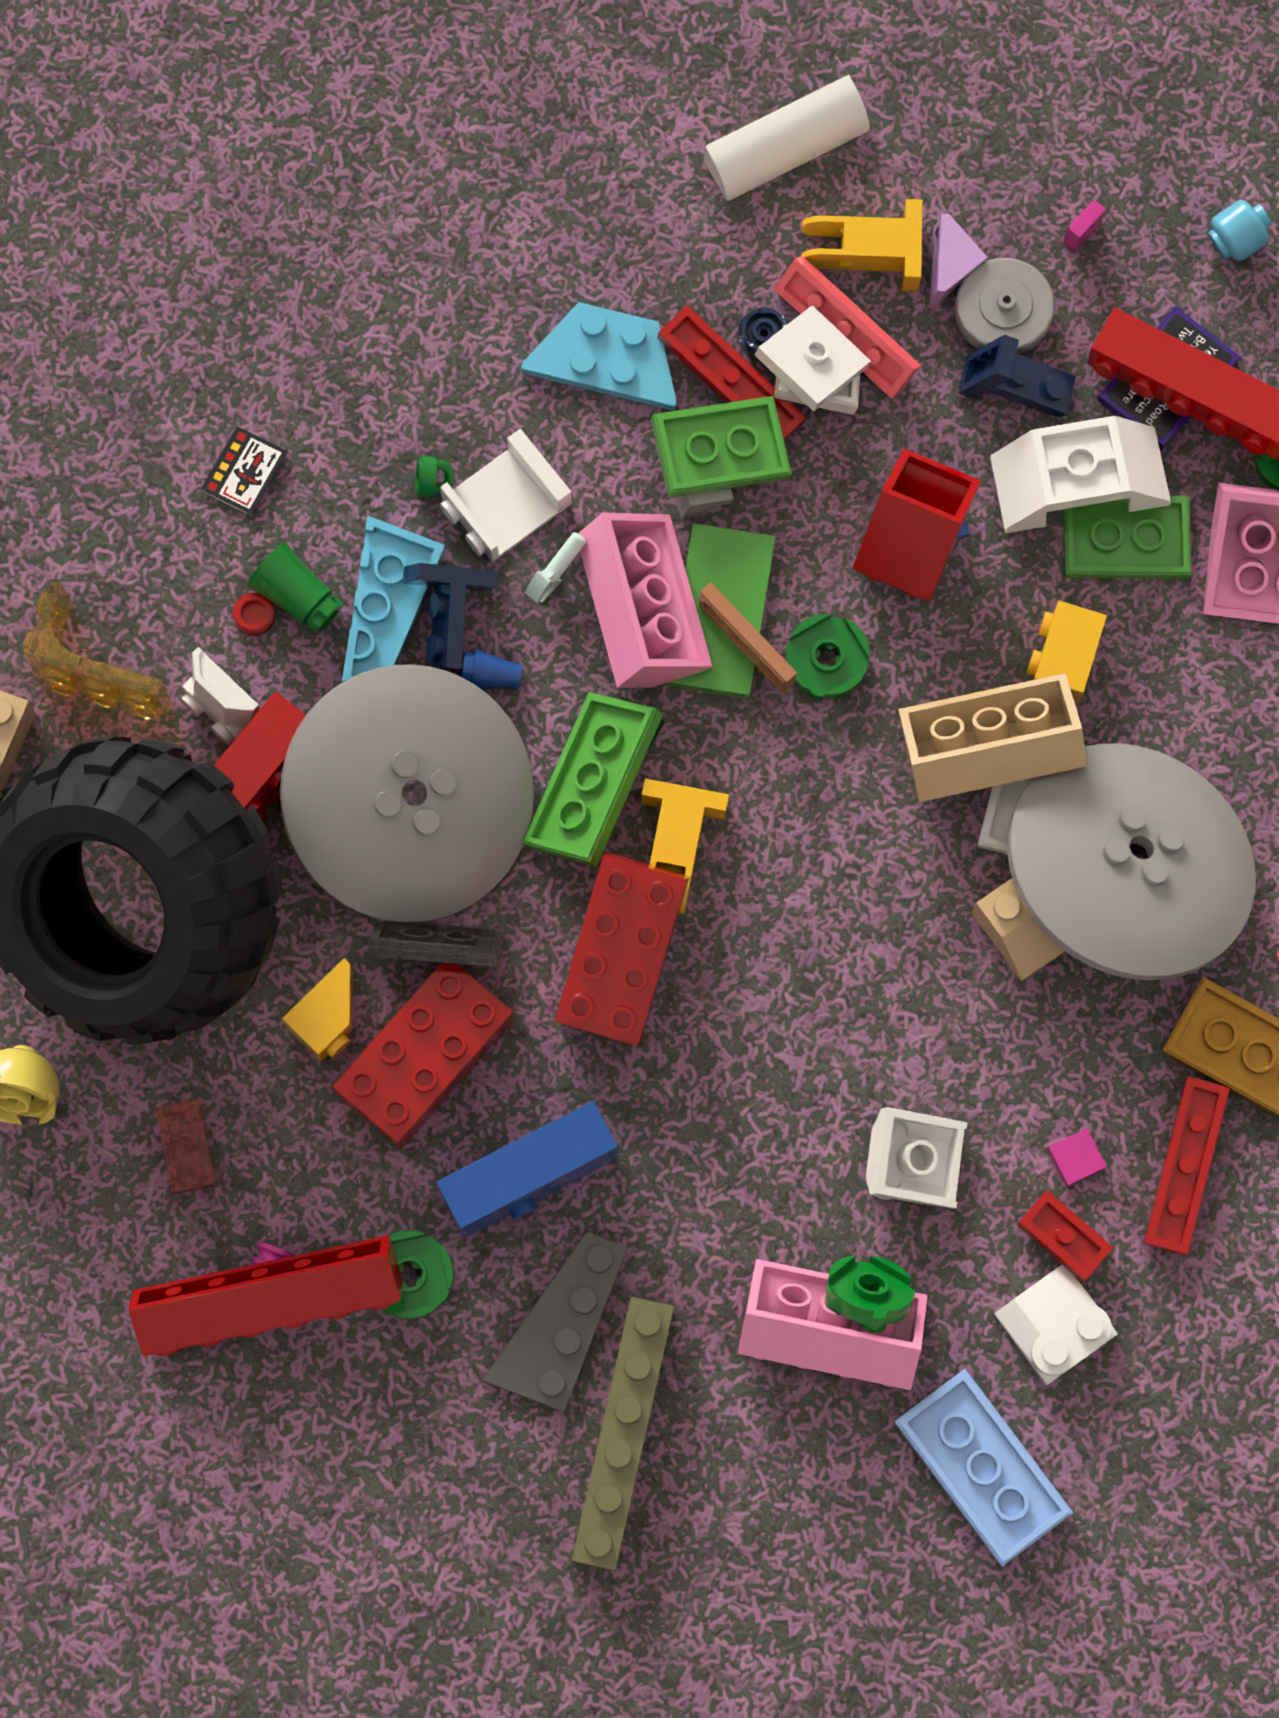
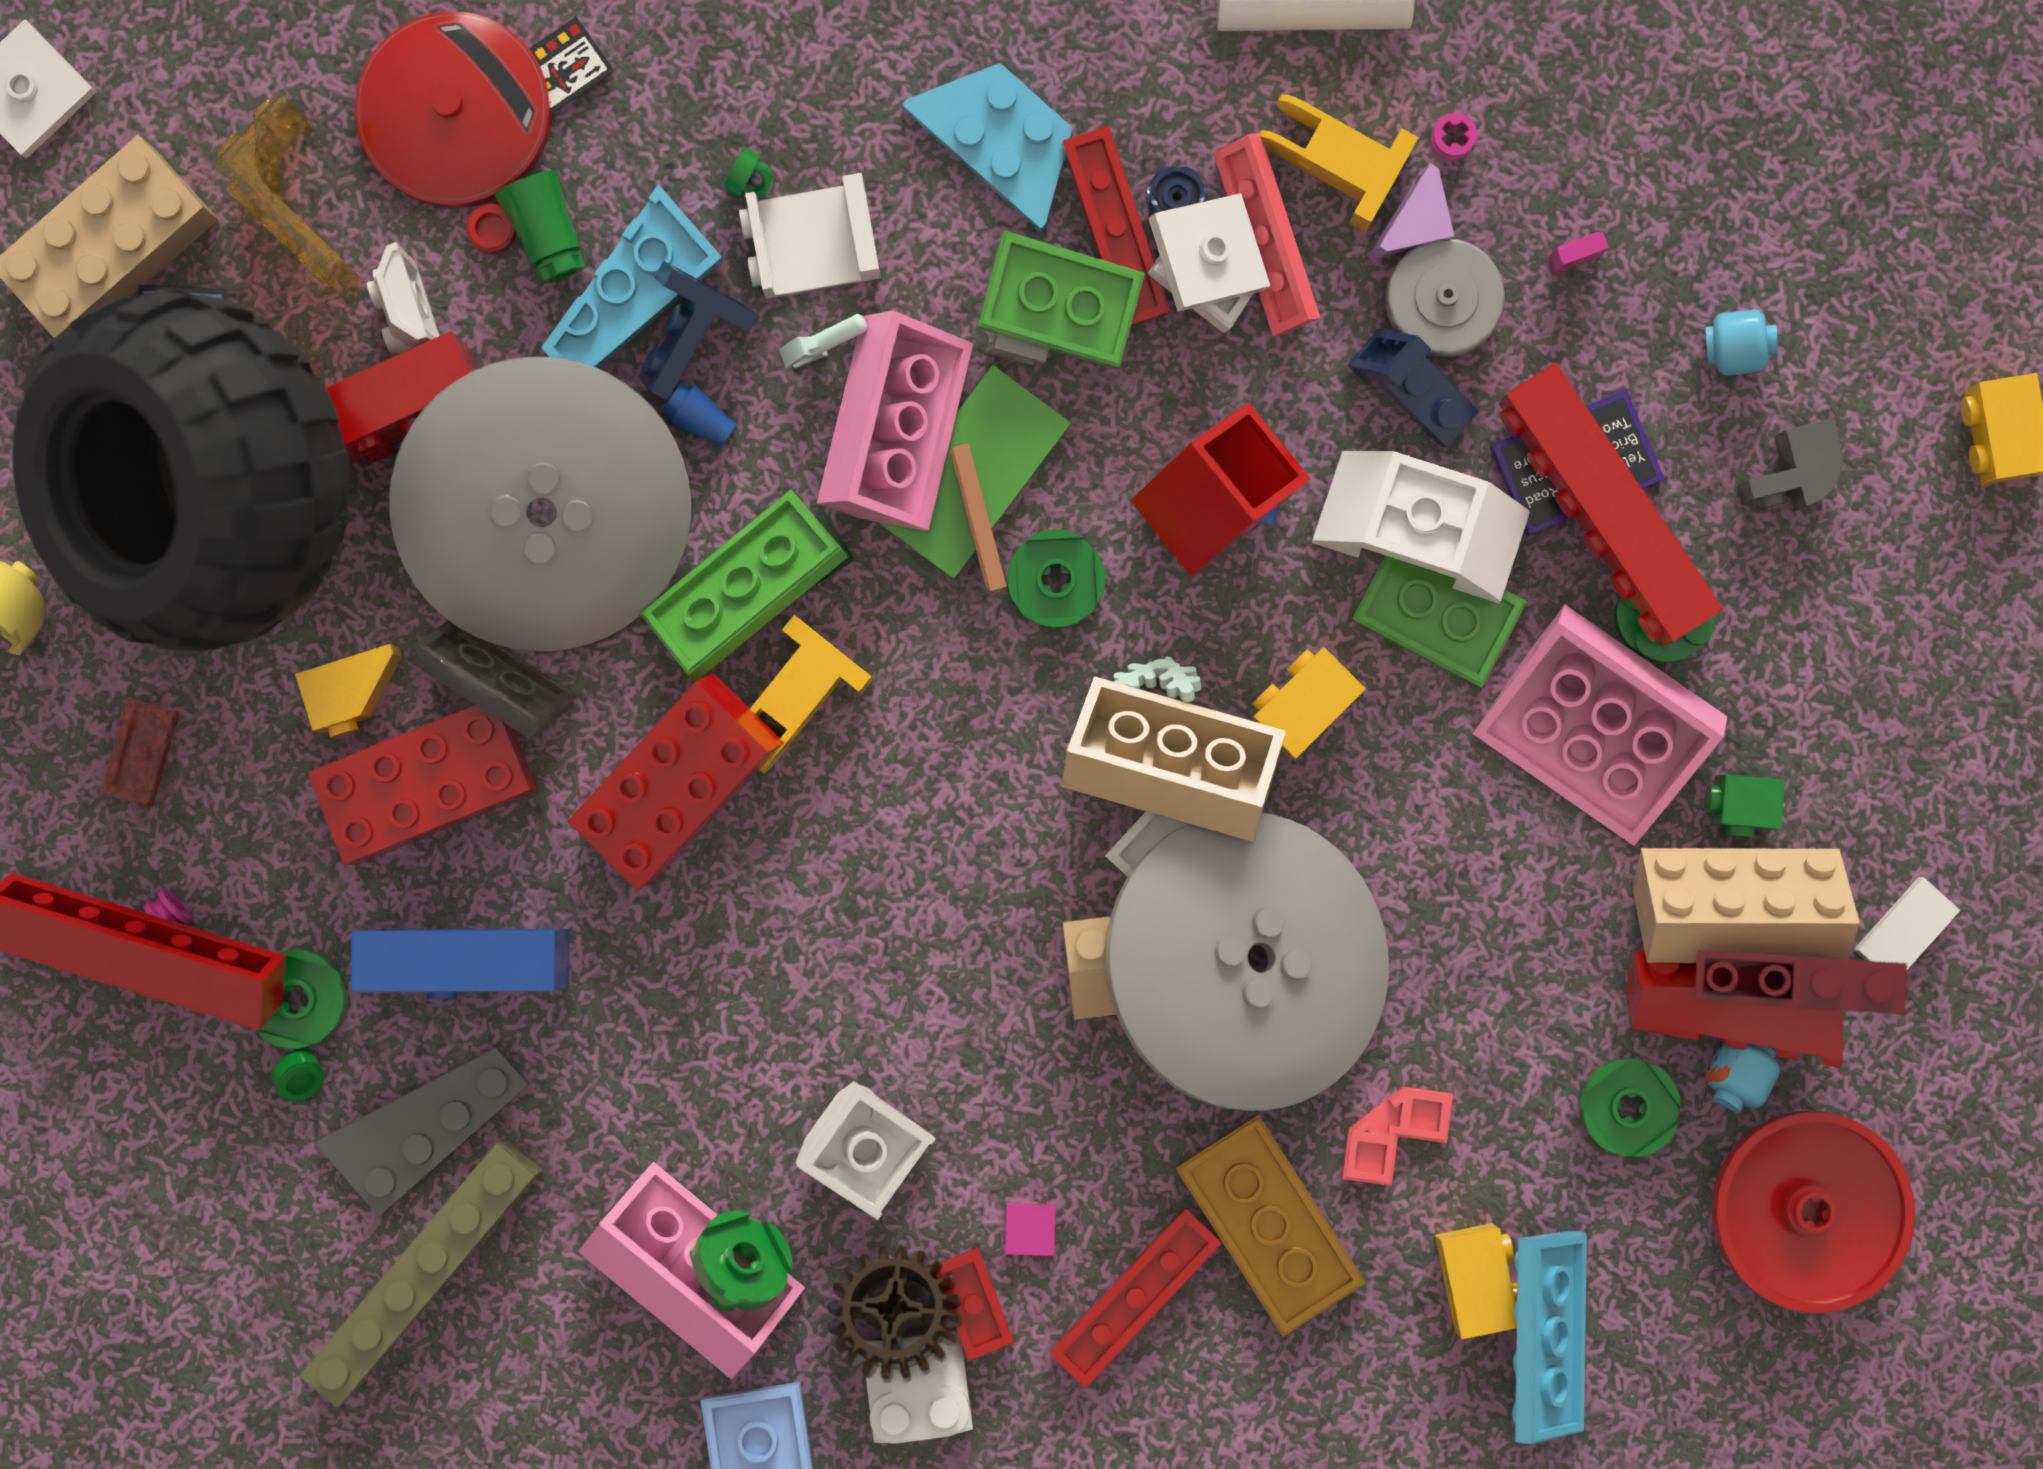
camera: 25 degrees right, 10 degrees up
(178, 540) = (452, 109): none -> red dish
(441, 1334) = (297, 1075): none -> green tile
(953, 199) = (1452, 122): none -> dark pink bush
(954, 682) = (1172, 677): none -> light aqua animal
(1039, 1253) = (914, 1314): none -> dark brown gear

